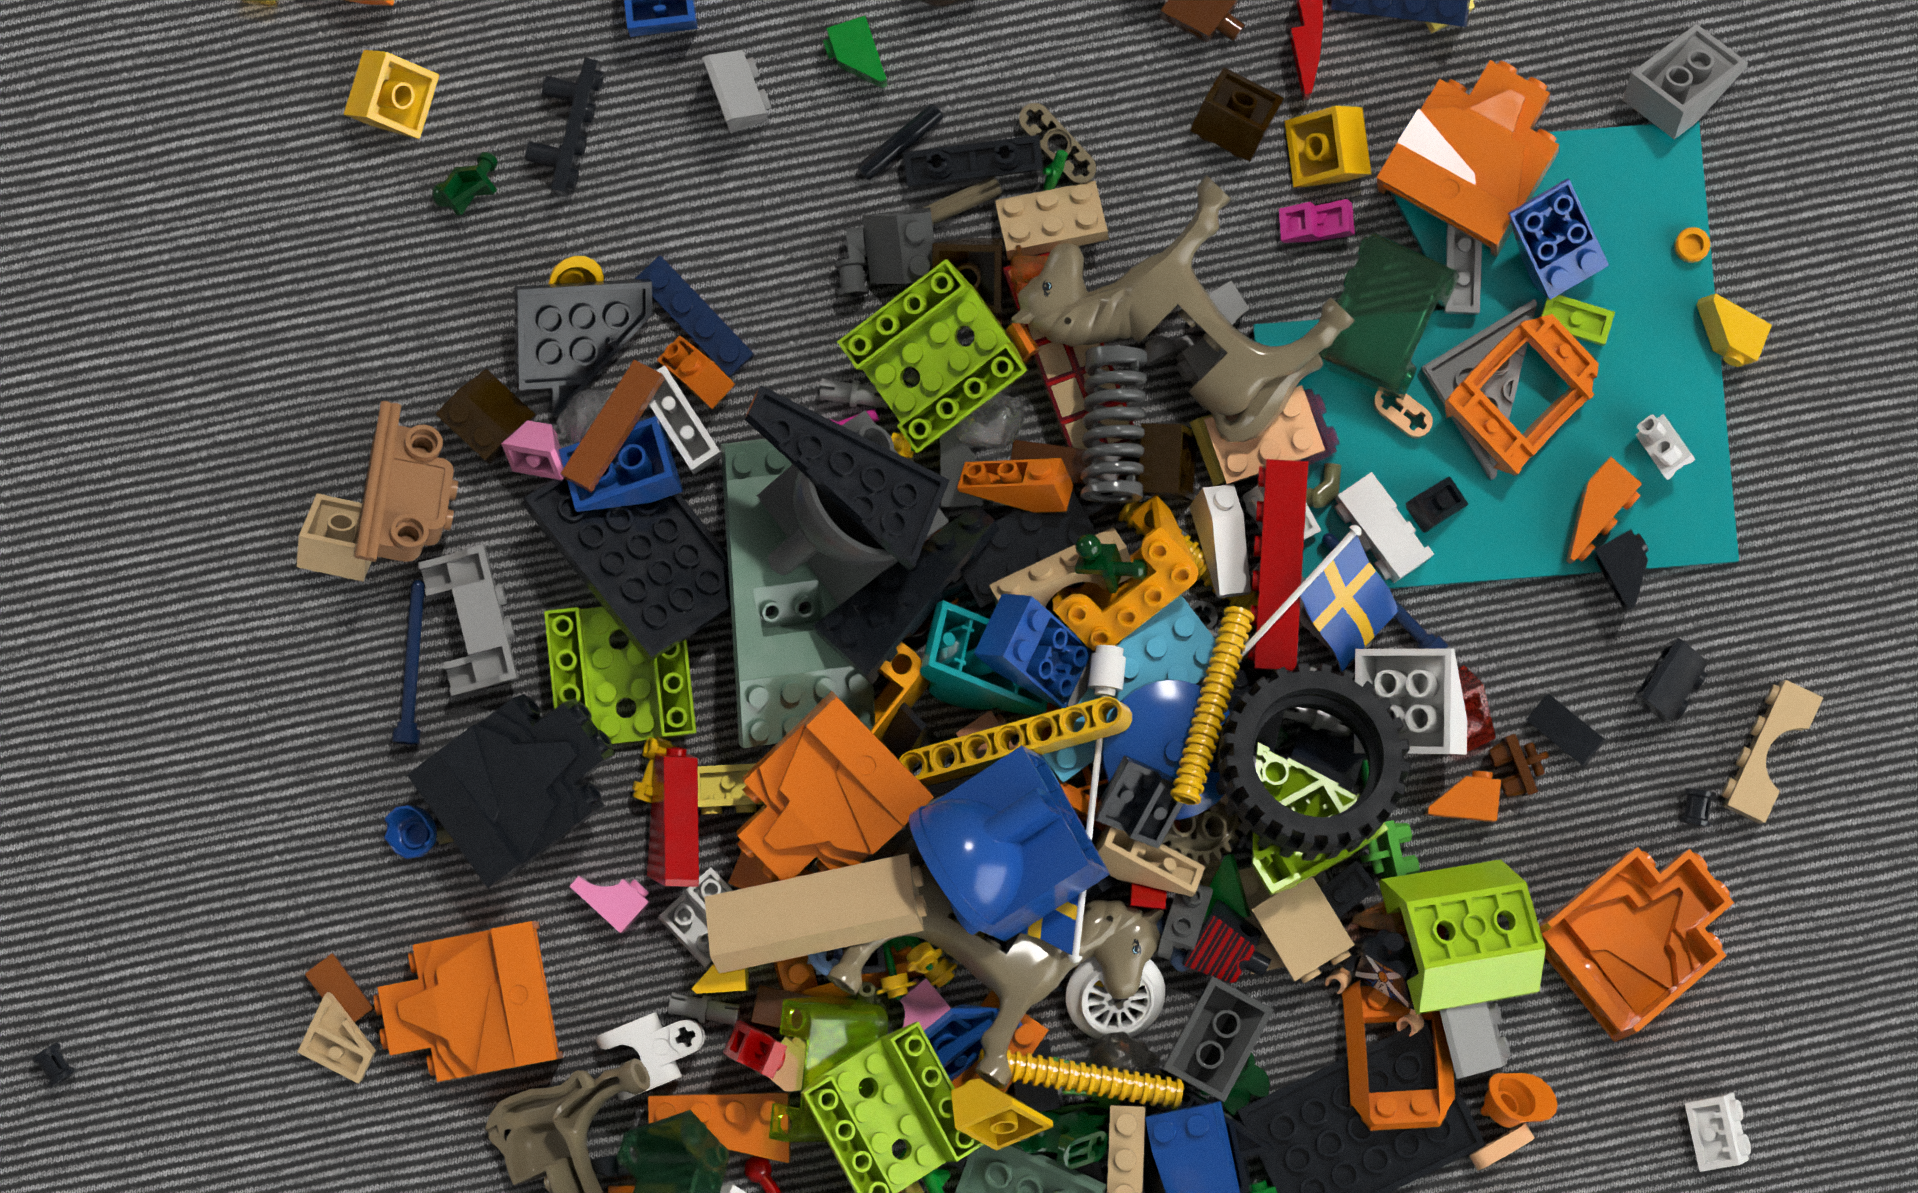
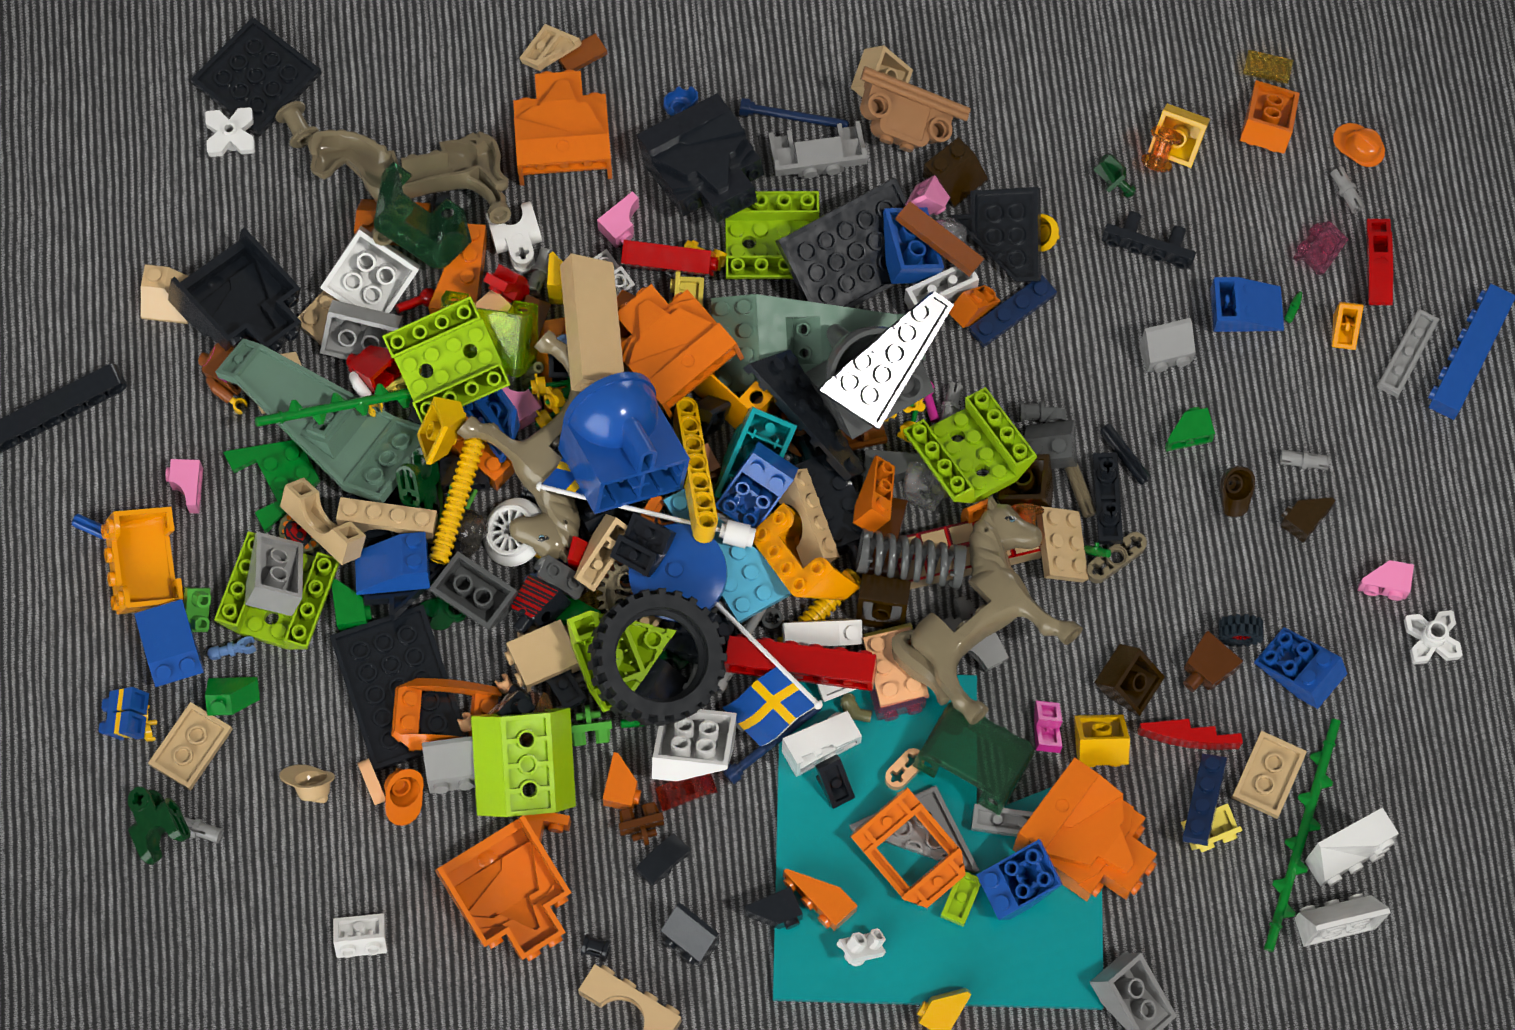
camera: 90 degrees right, 15 degrees down
(409, 111) = (1164, 140): none -> clear orange hose
(1106, 561) = (813, 539): dark green piece -> none
(1212, 705) = (705, 596): yellow piece -> none
(1535, 884) = (554, 822): none -> orange slope
(1692, 245) = (1010, 990): light orange tile -> none

